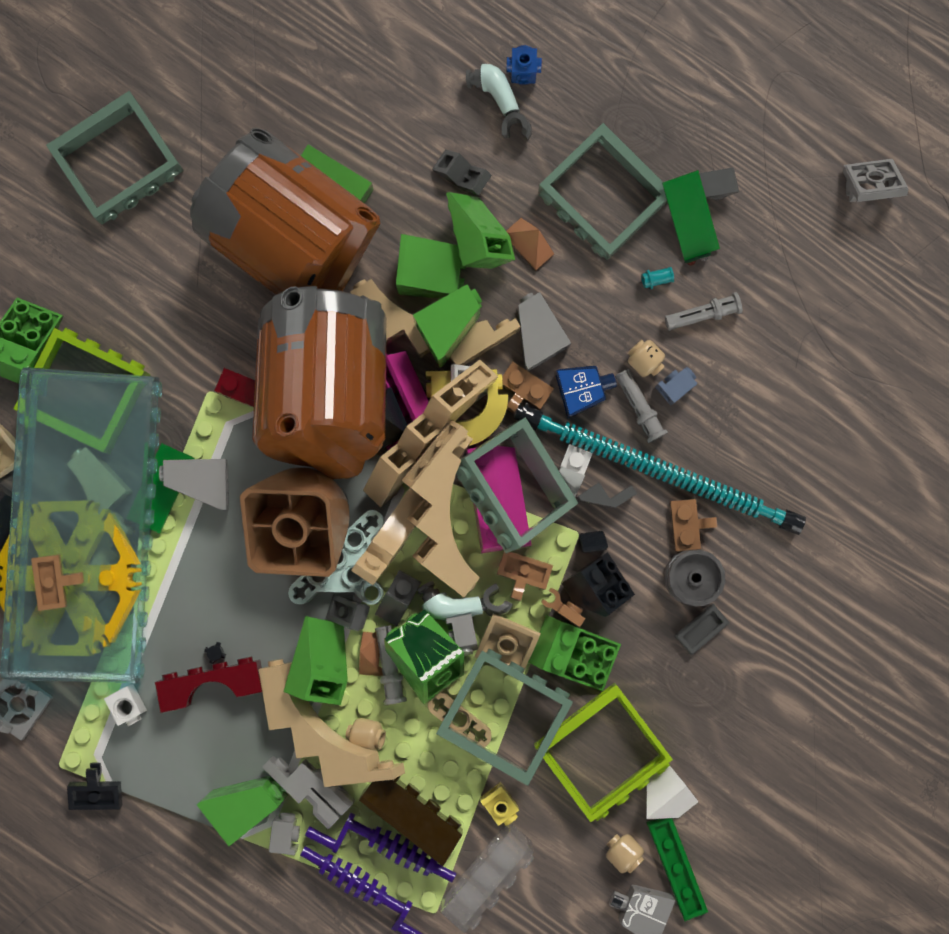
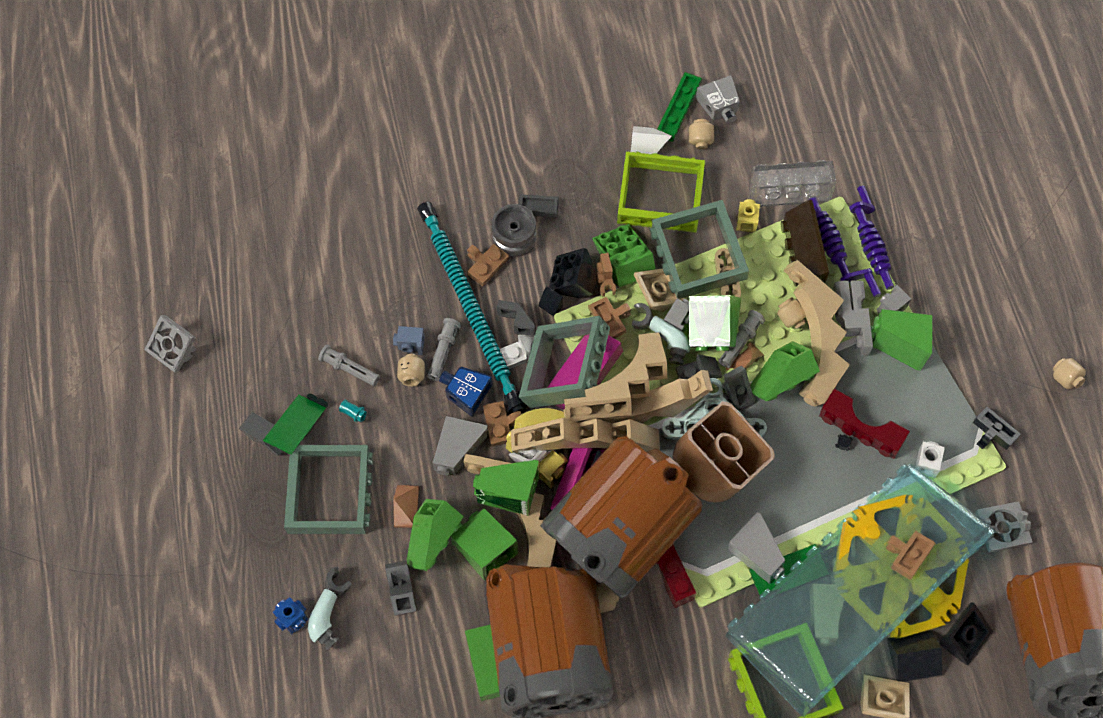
camera: 135 degrees left, 20 degrees down
(72, 915) = (1069, 373): none -> tan head

